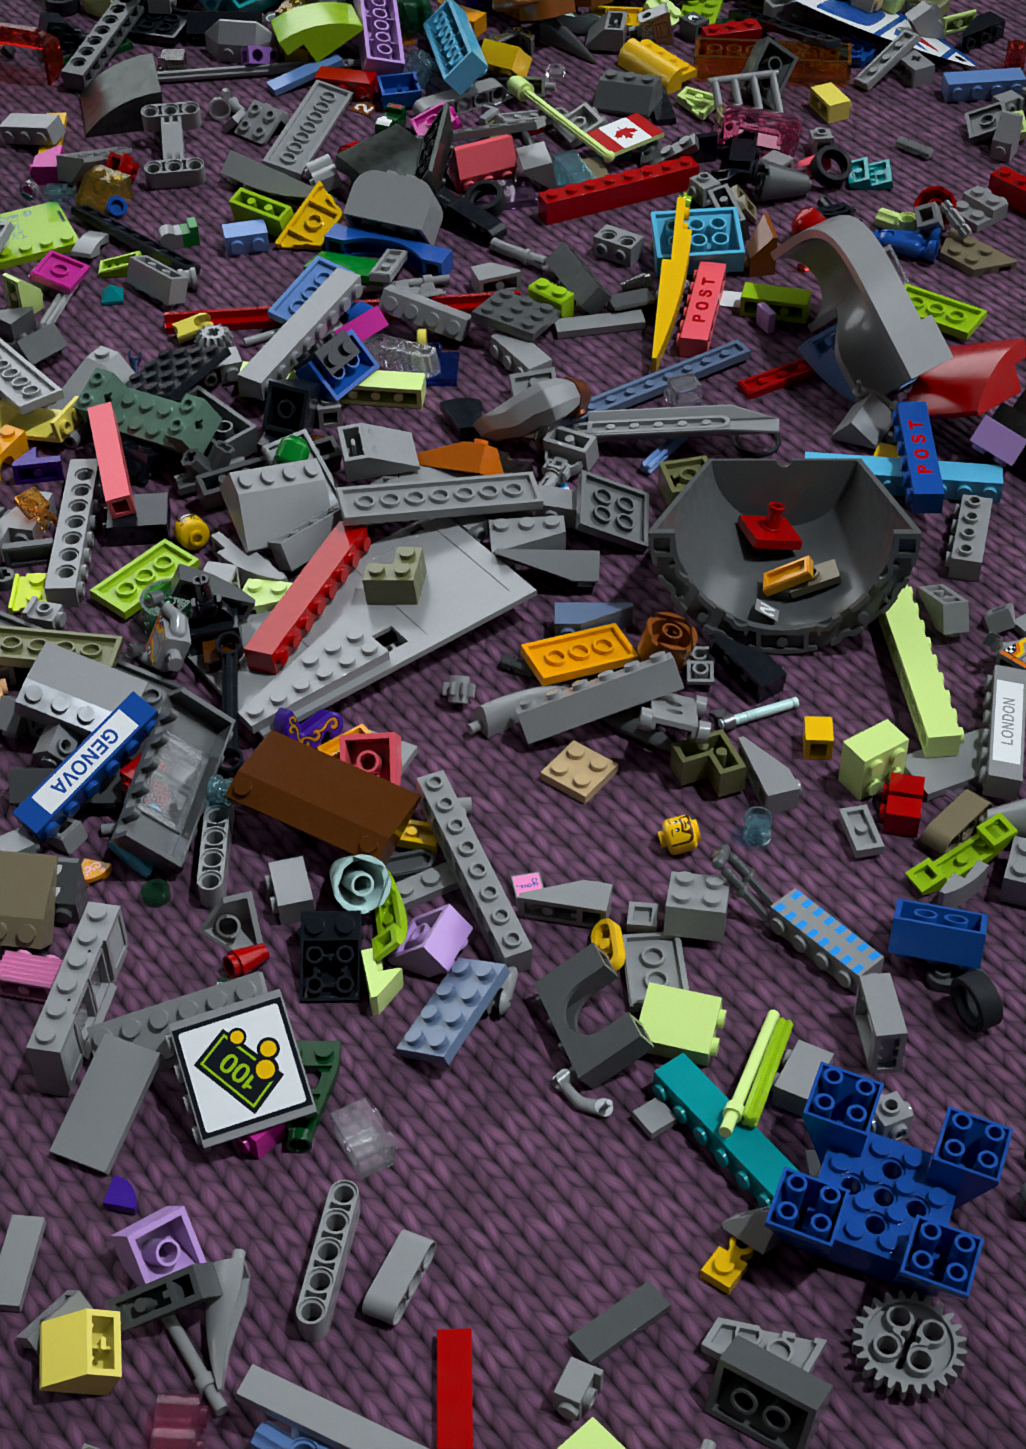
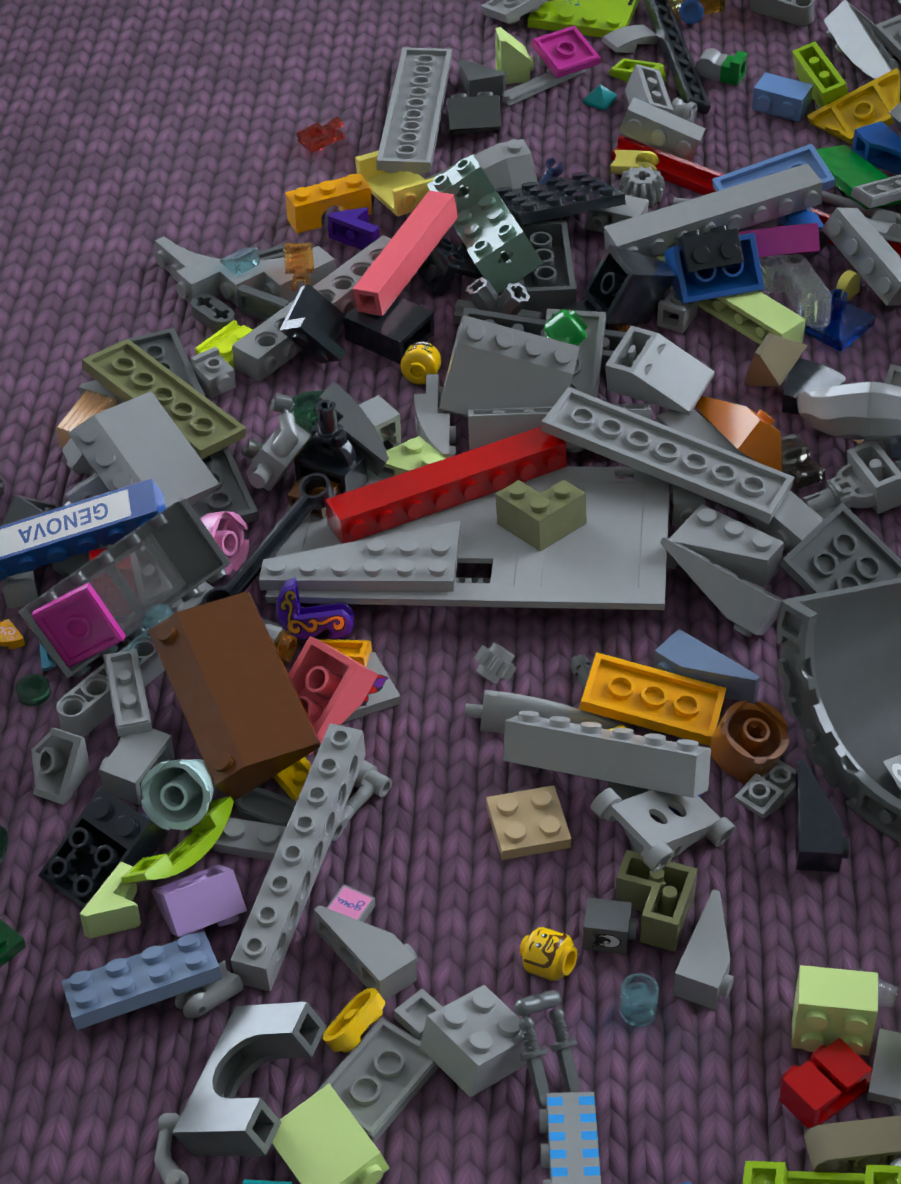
camera: 40 degrees right, 0 degrees up
(93, 547) = (314, 325): none -> black bracket
(123, 588) = (359, 378): lime plate -> none
(167, 821) = (78, 625): none -> dark pink plate
(191, 295) = (661, 129): none -> light grey brick
(243, 847) = (127, 692): none -> light grey tile
(244, 960) = (30, 803): red cone -> none
(432, 412) = (773, 361): none -> dark tan slope
(695, 797) = (608, 926): none -> dark grey brick
(729, 721) = (738, 868): light aqua piece -> none
(818, 738) = (810, 944): yellow brick -> none
(861, 831) = (747, 1081): light grey plate -> none

